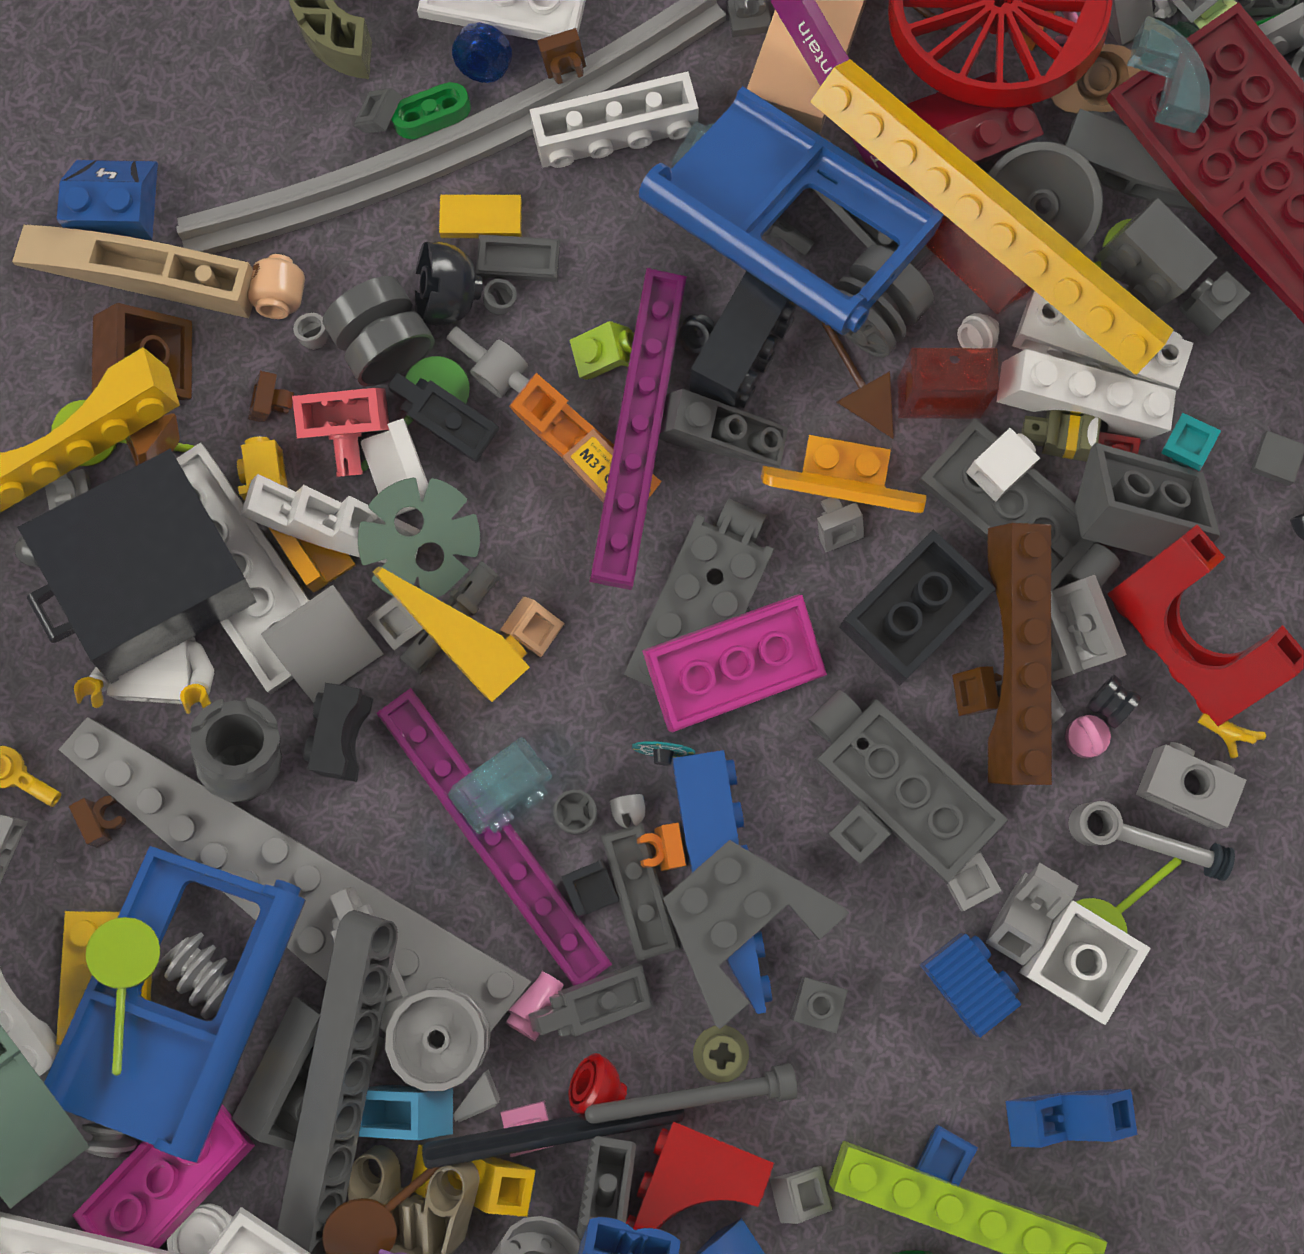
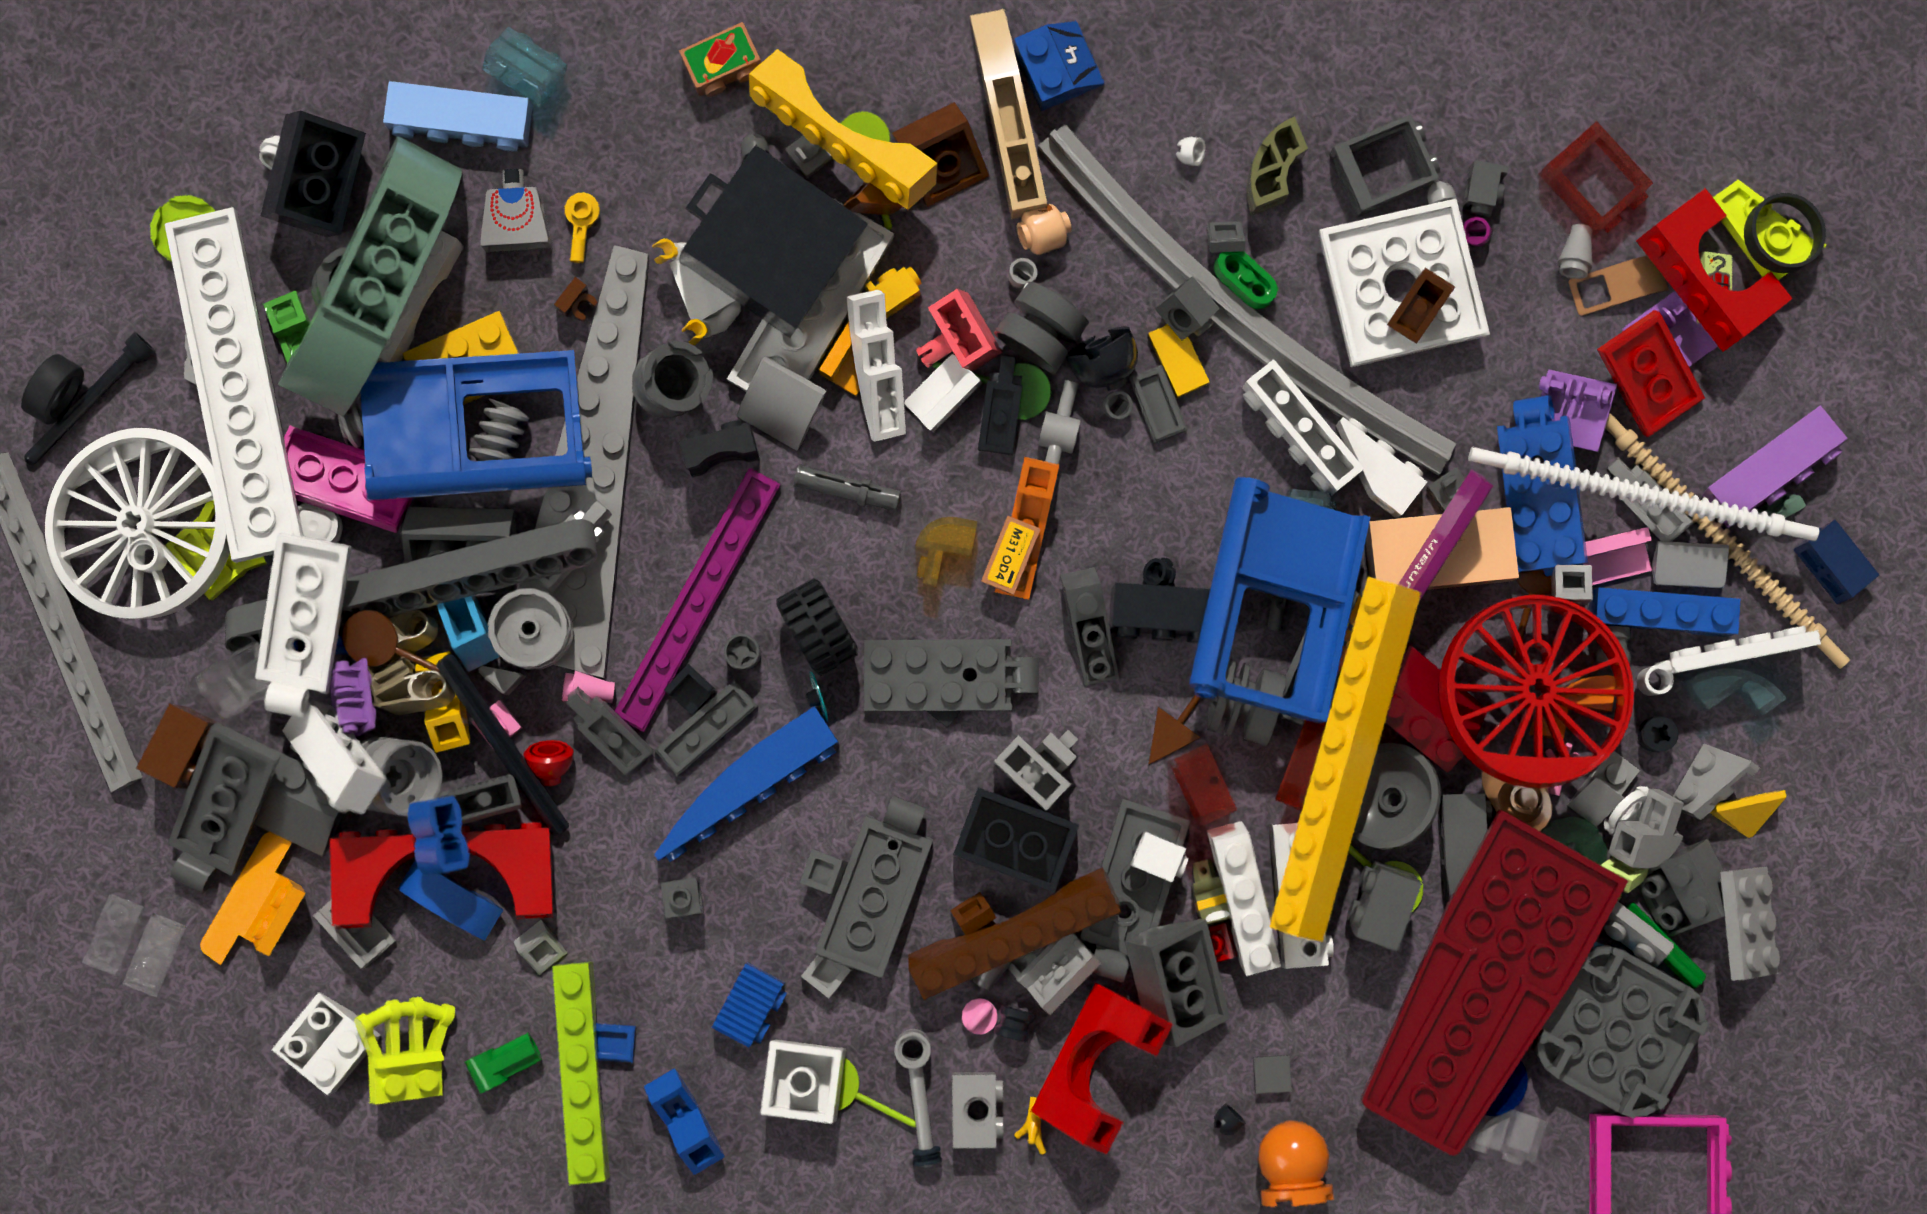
camera: 60 degrees right, 5 degrees up
(121, 957) = (484, 372): lime piece -> none
(267, 398) = (952, 265): reddish brown tile -> none
(272, 105) = (1191, 151): none -> white hinge
(394, 623) = (826, 450): light grey plate -> none
(426, 164) = (1188, 309): none -> dark grey brick
(438, 507) = (879, 412): sand green piece -> none
(475, 649) = (831, 515): yellow slope -> none
(482, 52) = (1311, 296): clear blue plate -> none
(500, 787) = (735, 587): clear light blue brick -> none
(532, 626) = (870, 553): light nougat slope -> none
(554, 536) = (944, 536): none -> clear yellow brick
(562, 54) = (1337, 361): reddish brown tile -> none
(587, 713) = (817, 627): none -> black tyre
(602, 349) = (1113, 507): lime bracket -> none
(626, 807) = (762, 691): light grey hinge -> none
(638, 430) = (1058, 562): magenta tile -> none
(667, 845) = (748, 732): orange tile -> none
(714, 62) = (1384, 477): none -> white slope
(721, 1053) = (615, 842): olive piece -> none
(730, 903) = (722, 796): dark grey wing -> none
(734, 662) = (909, 720): dark pink tile -> none
(776, 1083) = (610, 891): dark grey piece -> none
(845, 473) = (1096, 739): light orange plate -> none
(852, 558) = (1031, 773): none -> light grey brick
(978, 331) = (1262, 794): white plate -> none
(1029, 913) = (820, 1026): light grey brick -> none
(1187, 88) = (1525, 867): clear light blue brick -> none
(1190, 442) = (1248, 997): teal tile -> none
(1214, 302) = (1375, 969): dark grey brick -> none

